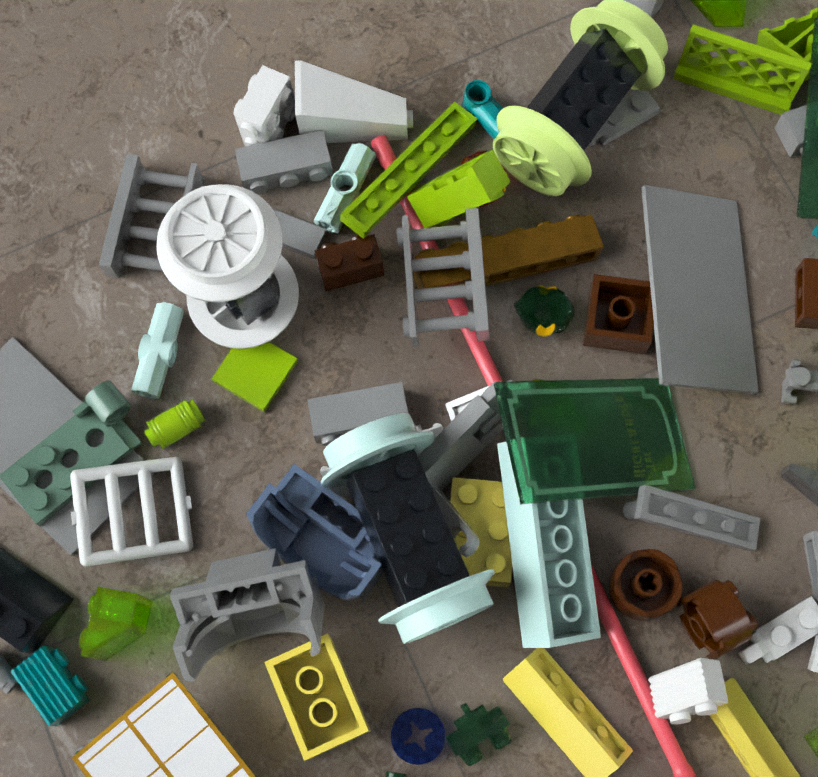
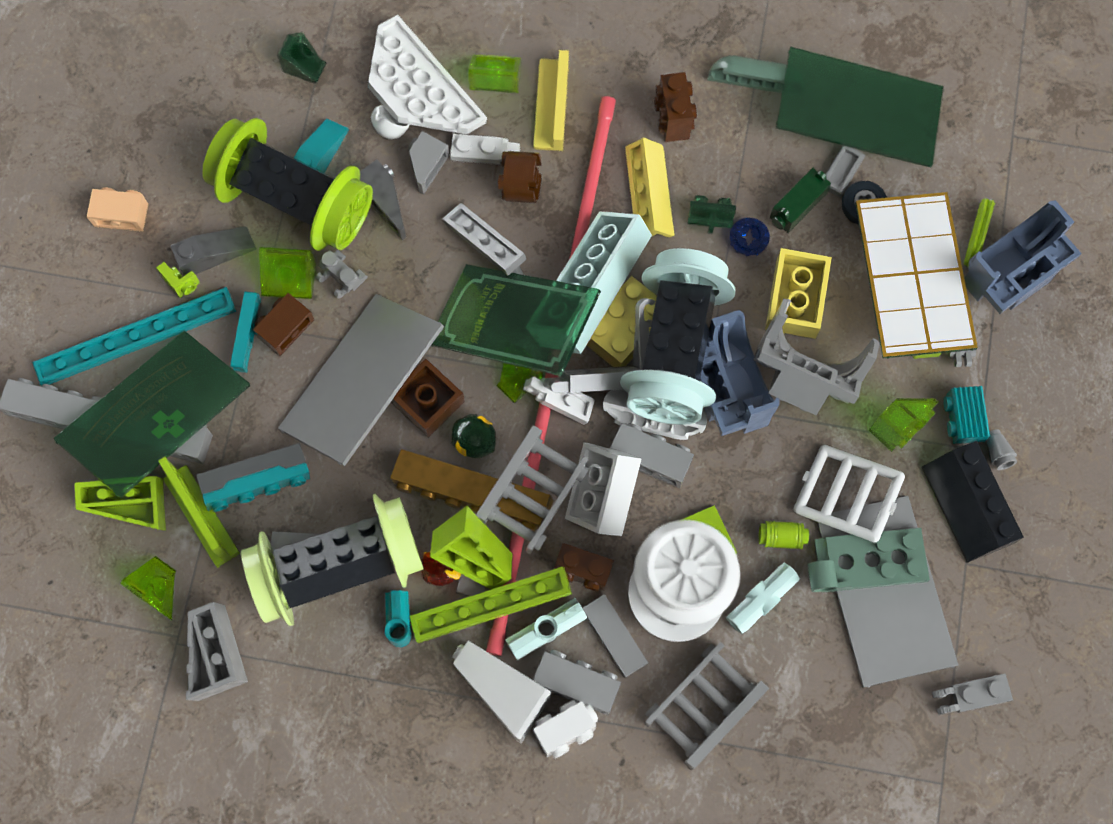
camera: 150 degrees left, 0 degrees up
(377, 342) = (605, 492): none -> white slope
(663, 580) = (559, 218): reddish brown brick -> none
(688, 690) = (570, 148): white brick -> none
(717, 135) = (253, 477): none -> piece

